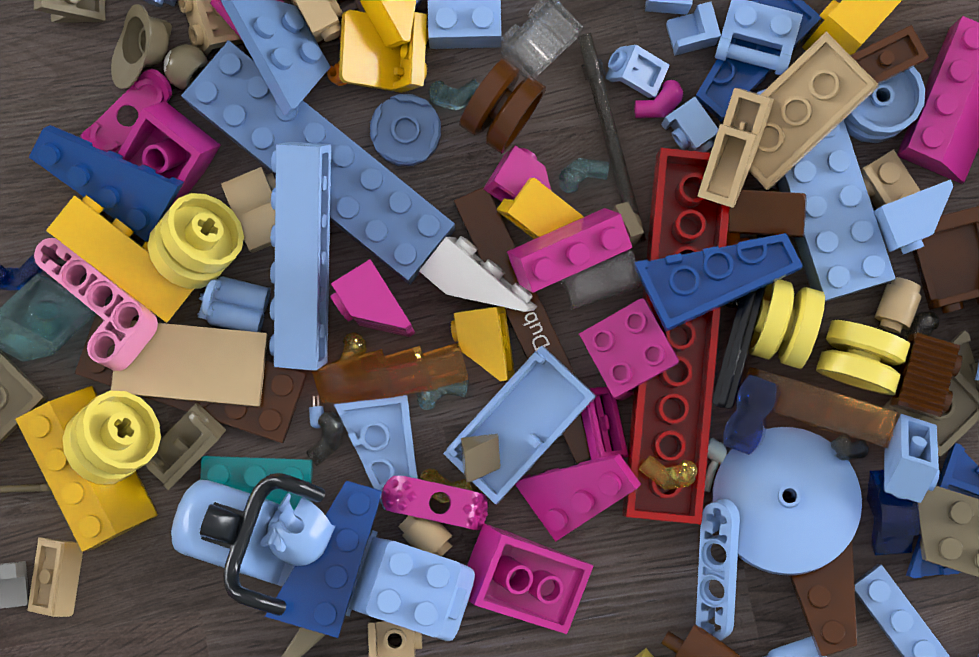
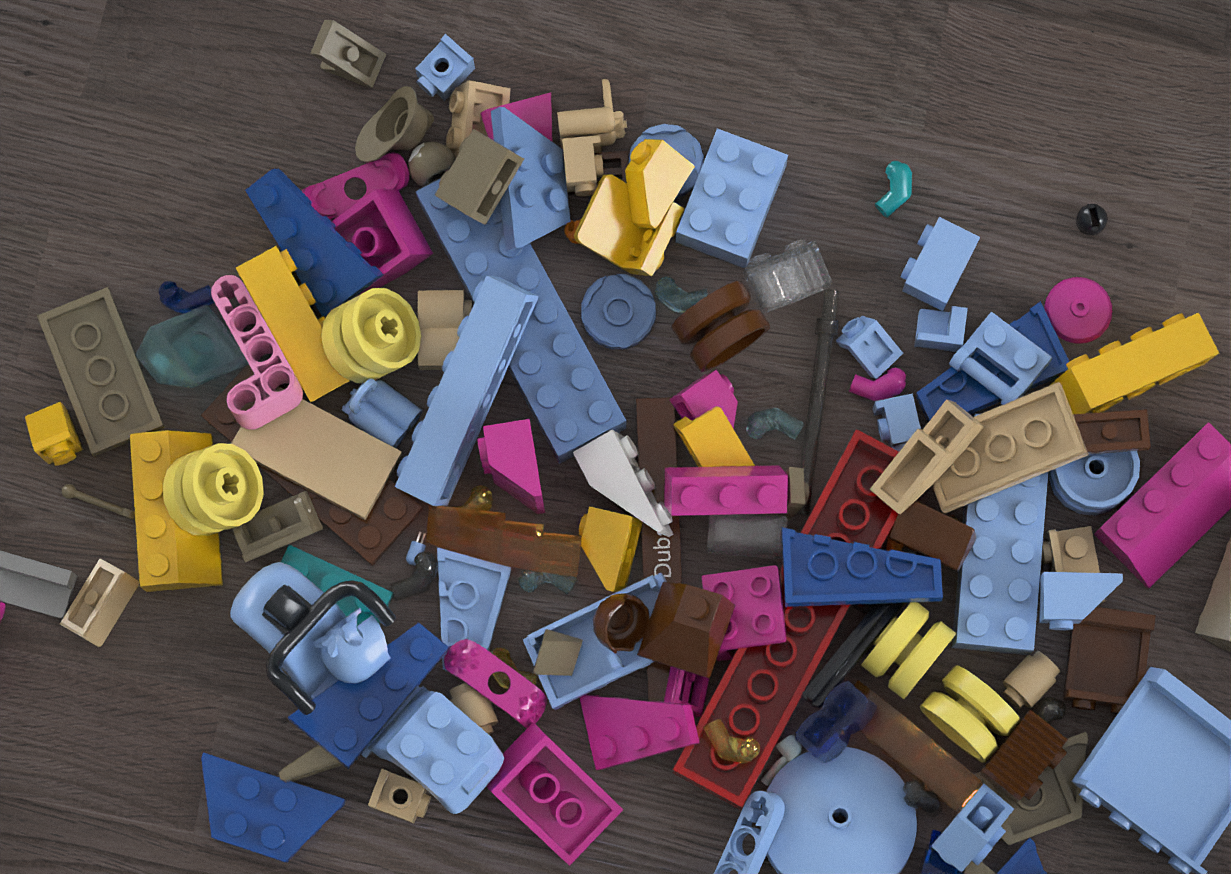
camera: 30 degrees right, 5 degrees down
(231, 57) = (478, 176): none -> dark tan brick
(525, 405) = (620, 622): none -> reddish brown hair
(586, 387) = (686, 628): none -> reddish brown slope

